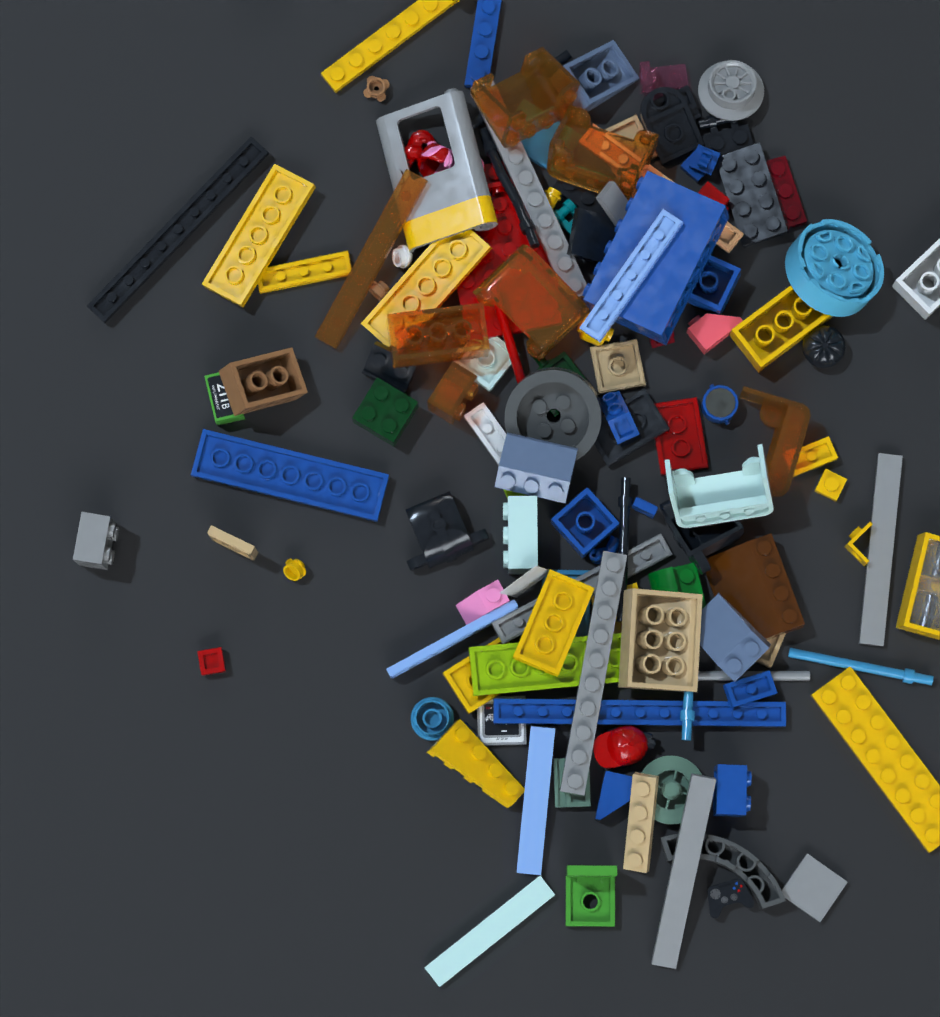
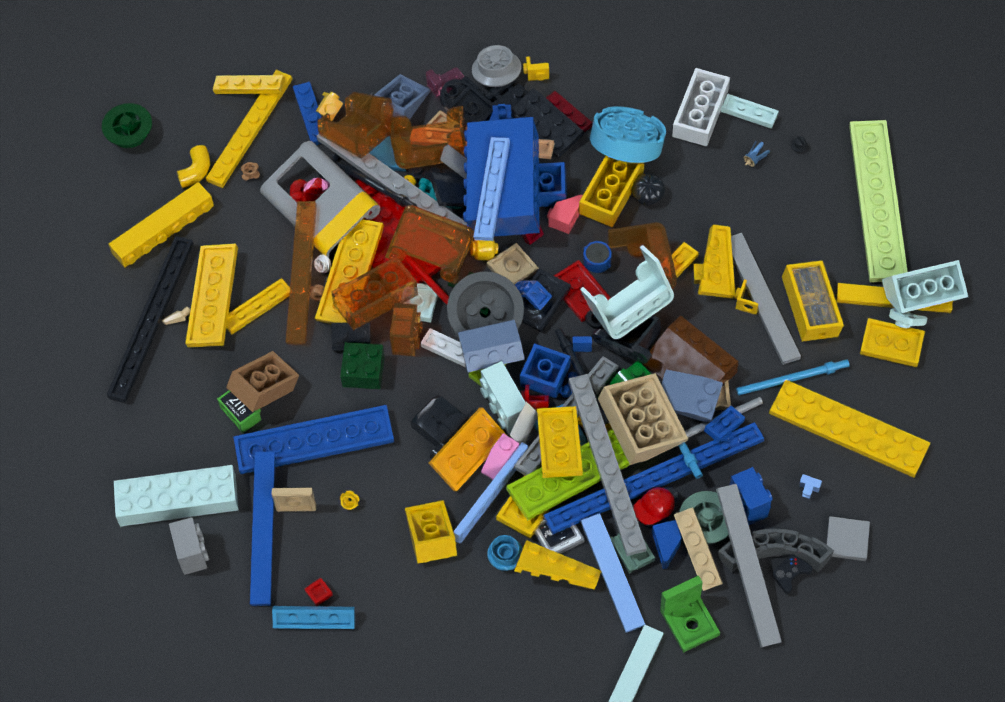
camera: 25 degrees left, 20 degrees down
(109, 470) = (175, 495): none -> light aqua brick
(185, 556) = (262, 529): none -> blue tile
(192, 688) = (313, 617): none -> dark azure plate
(208, 241) = (177, 316): none -> tan bar
(242, 112) = (161, 224): none -> yellow brick
(318, 56) = (198, 168): none -> yellow cylinder
(364, 651) = (431, 531): none -> yellow slope
(451, 576) = (467, 449): none -> light orange plate
(508, 46) = (330, 105): none -> yellow bracket
(555, 552) = (535, 401): none -> red bracket
(778, 121) = (536, 71): none -> yellow bracket
(805, 807) = (809, 484): none -> light blue tile
(849, 489) = (717, 270): none -> yellow wing

